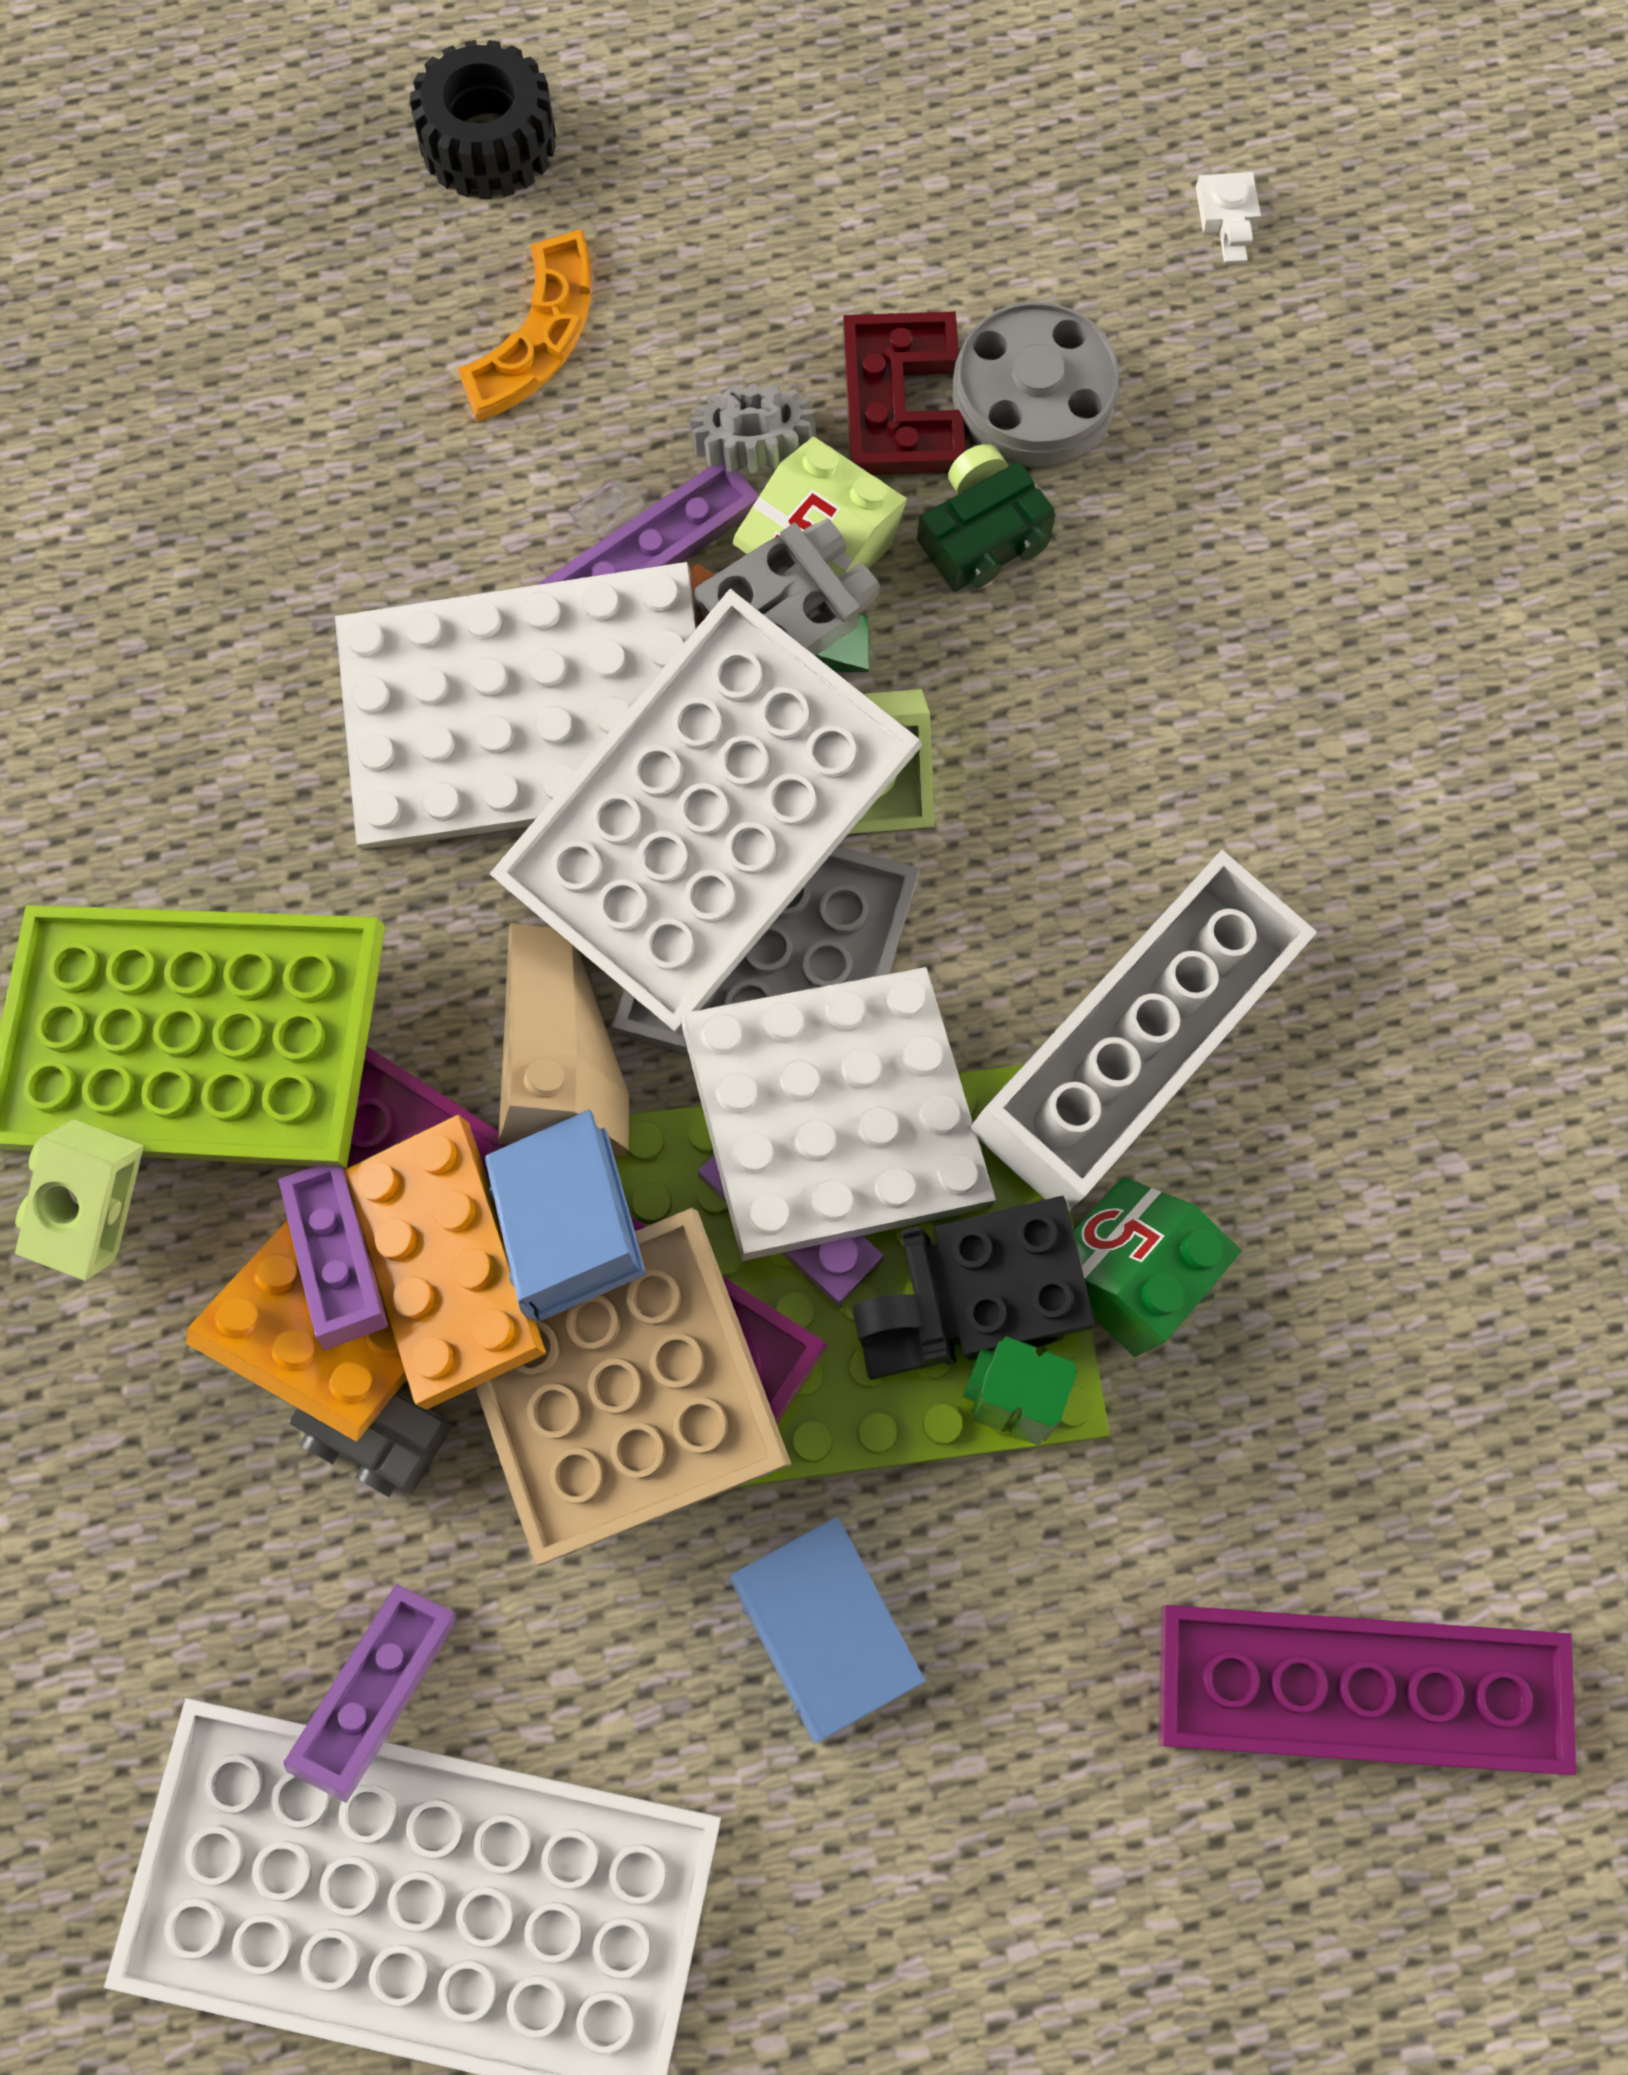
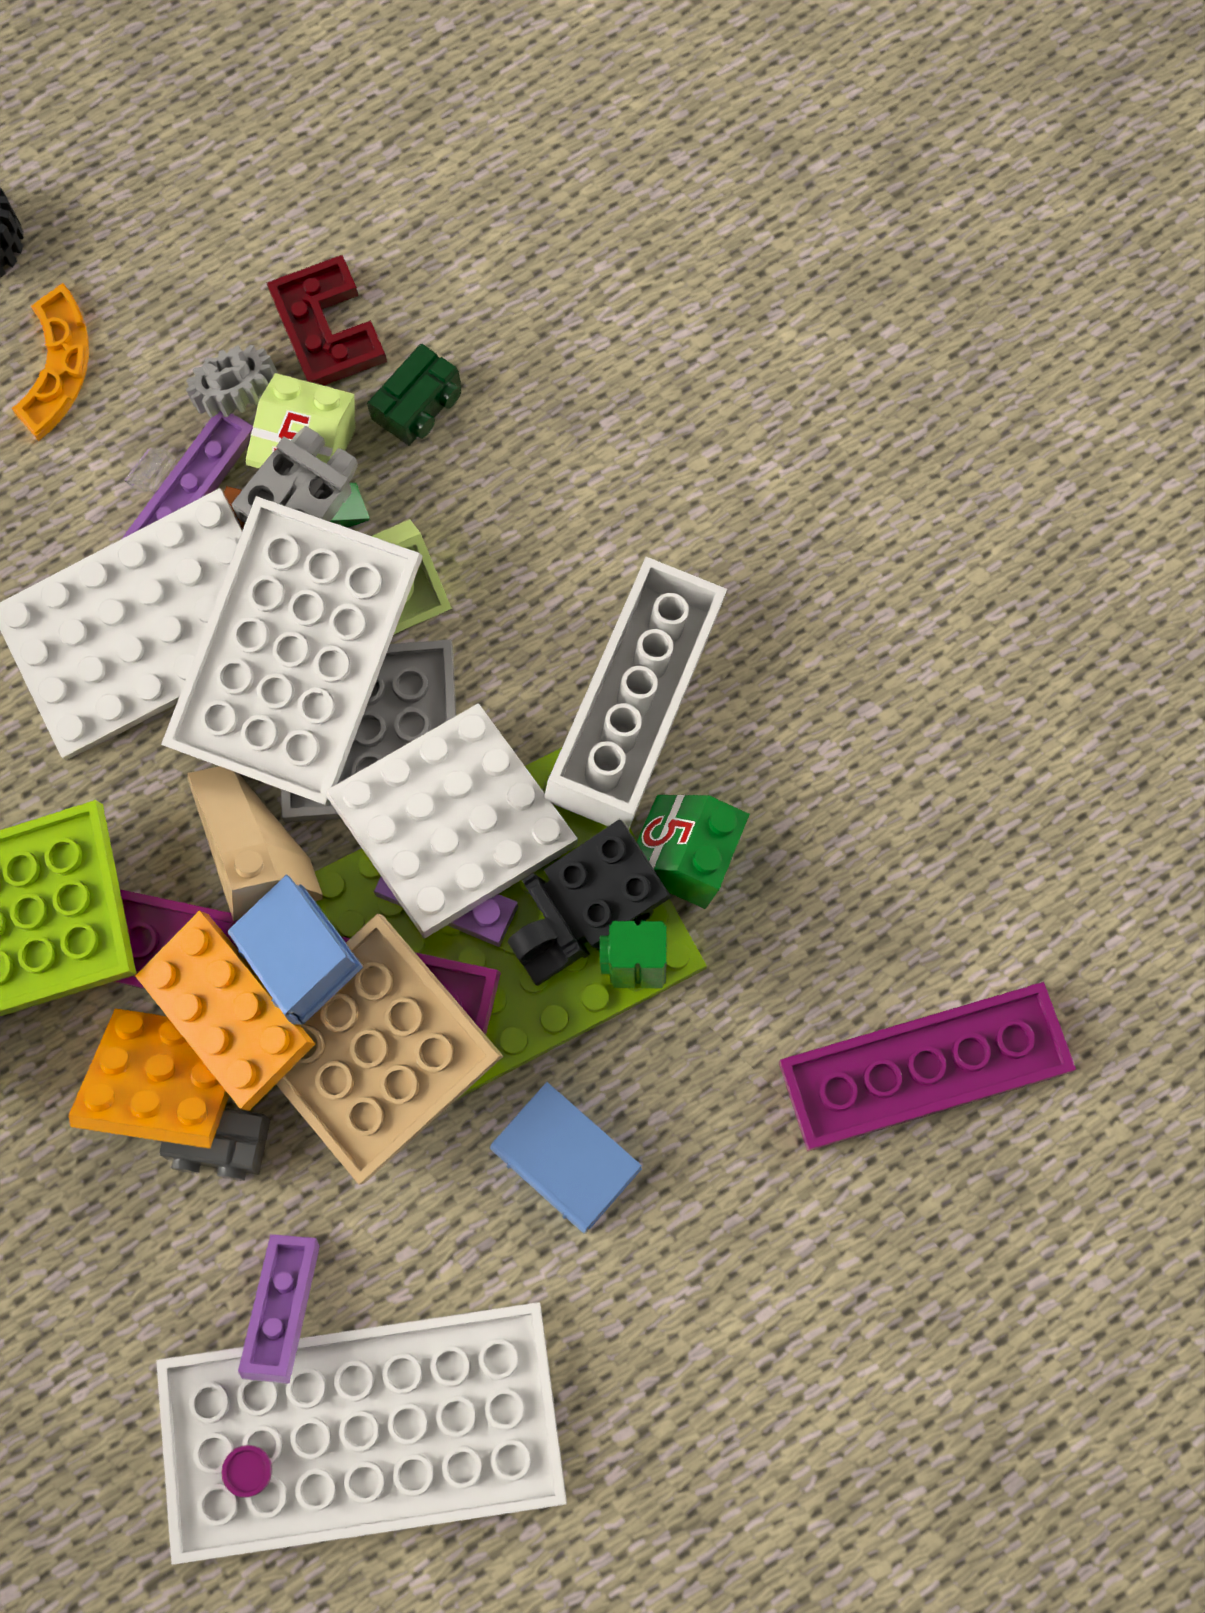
camera: 15 degrees left, 0 degrees up
(248, 1899) = (246, 1471): none -> magenta piece
(332, 1256) = (148, 1033): medium lavender plate -> none
(975, 466) = (393, 355): yellowish green tile -> none
(1036, 383) = (414, 286): light grey piece -> none
(1231, 207) = (505, 121): white plate -> none

